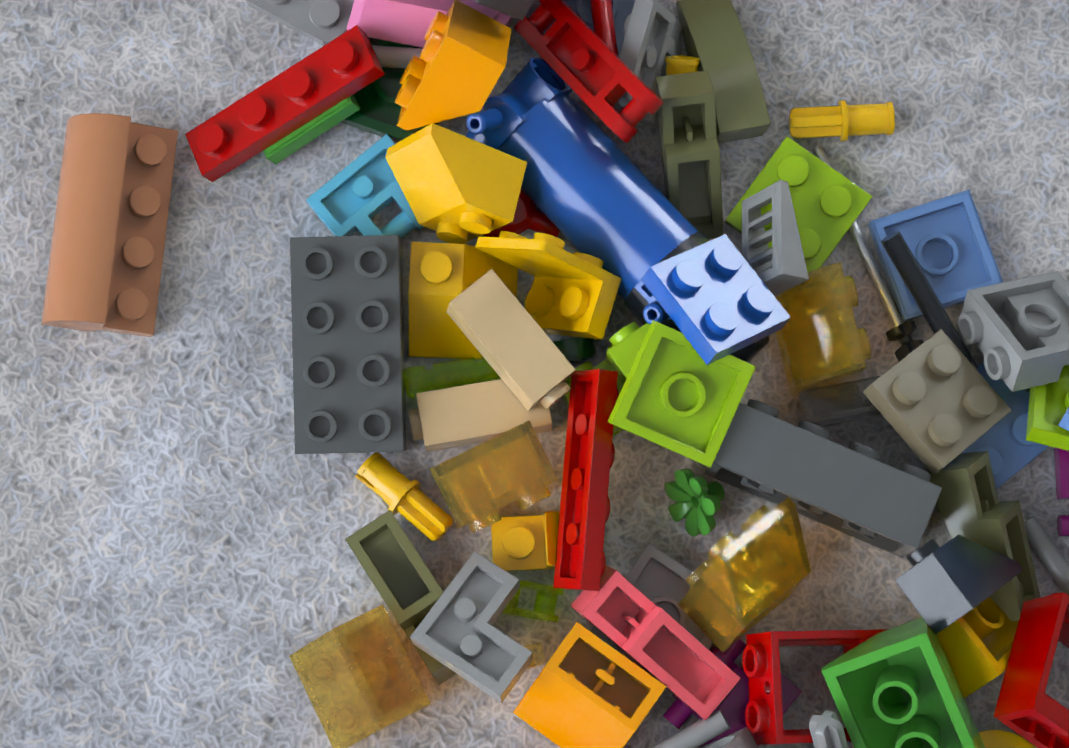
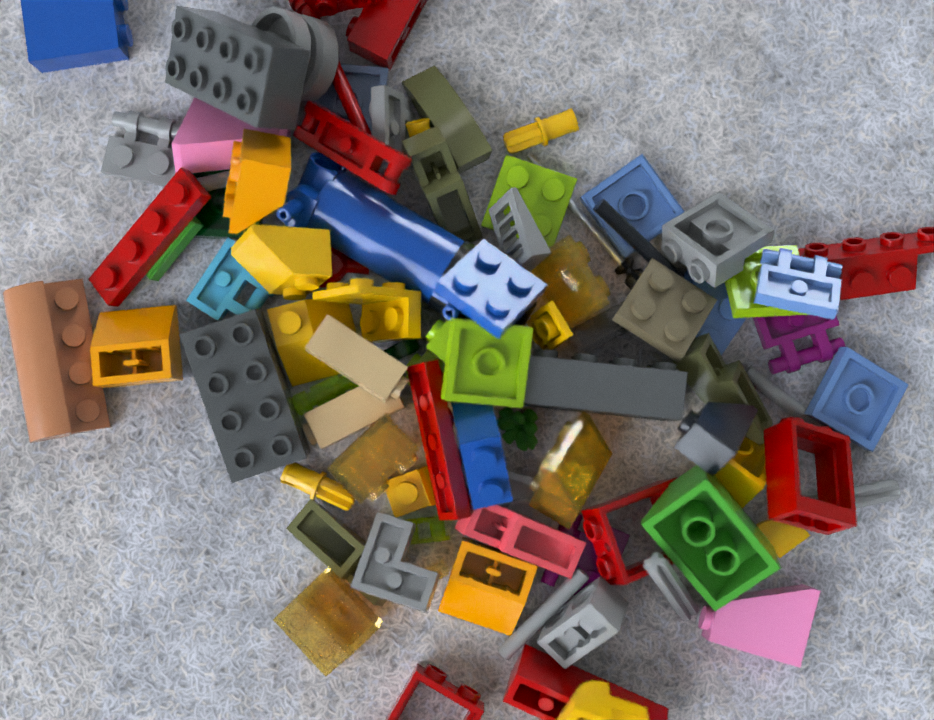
camera: 15 degrees left, 5 degrees up
(222, 242) = (136, 347): none -> light orange slope
(638, 510) = (482, 454): none -> blue brick
(777, 377) = (549, 327): none -> yellow slope

